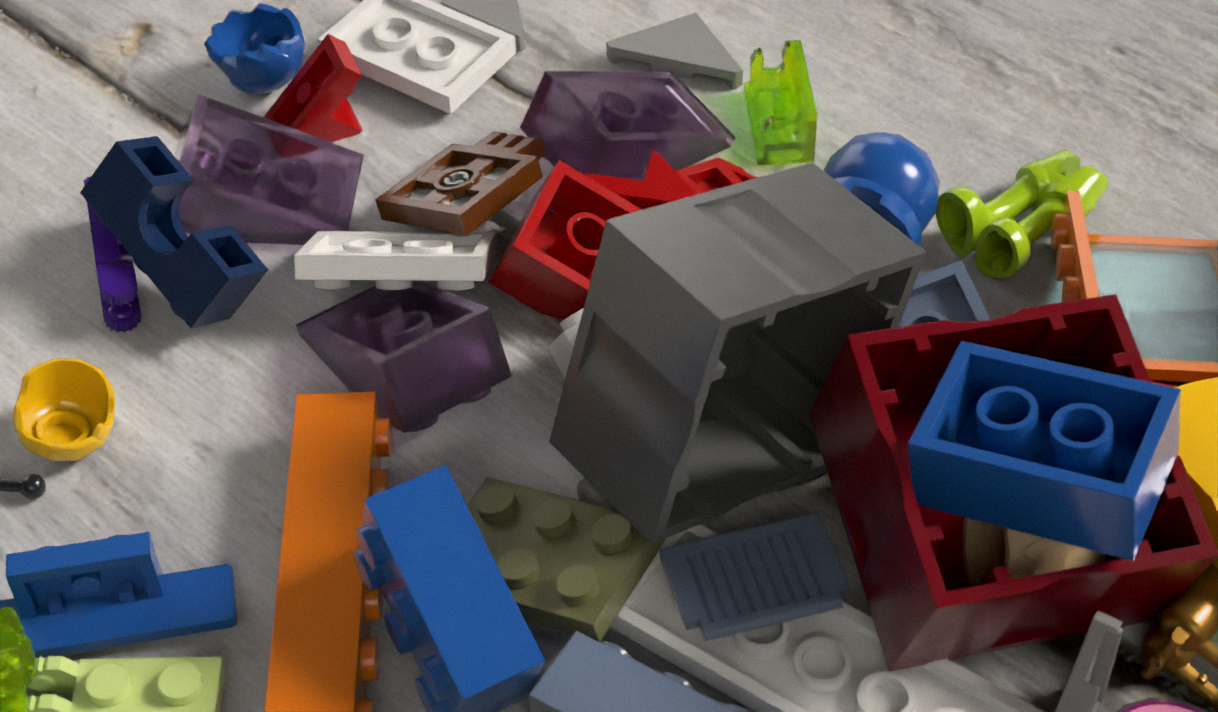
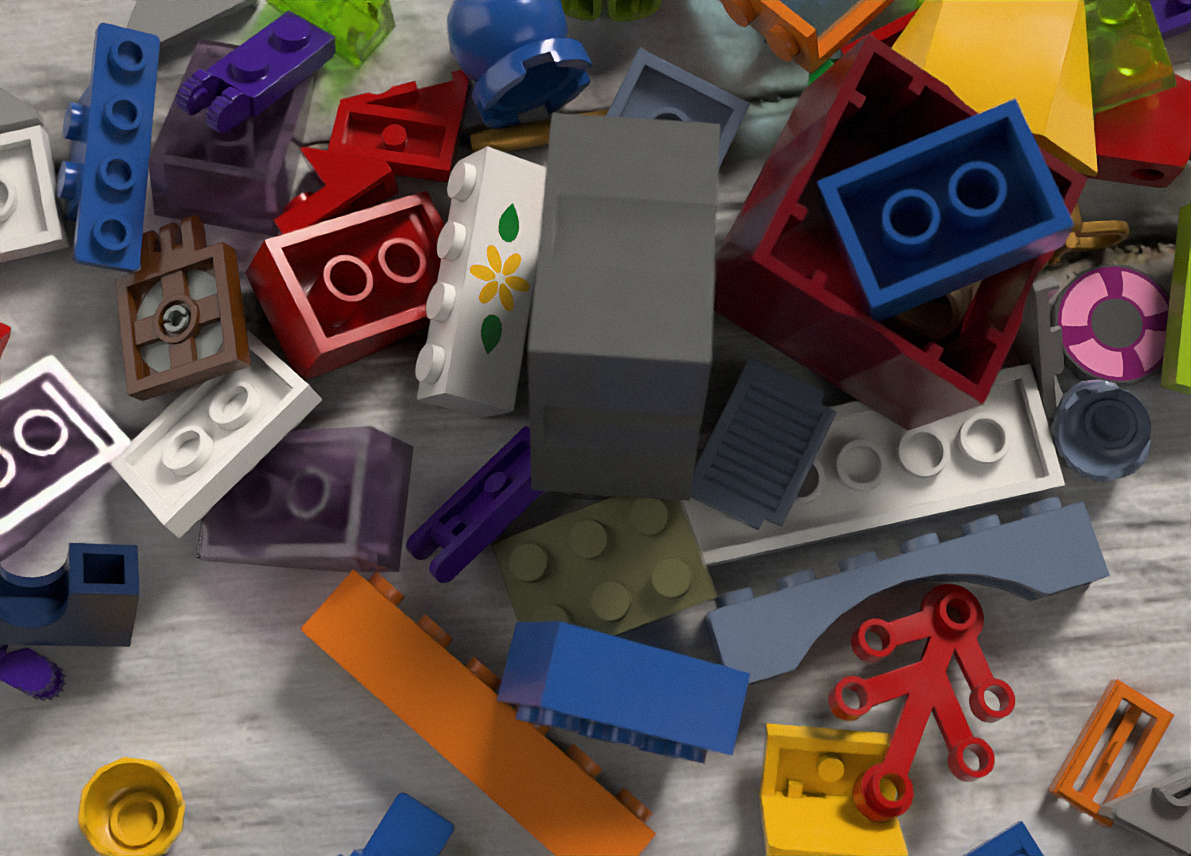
camera: 50 degrees left, 30 degrees up
(498, 451) = (477, 511): none -> dark purple hinge
(506, 86) = (111, 149): none -> blue bracket
(680, 98) = (257, 72): none -> dark purple hinge

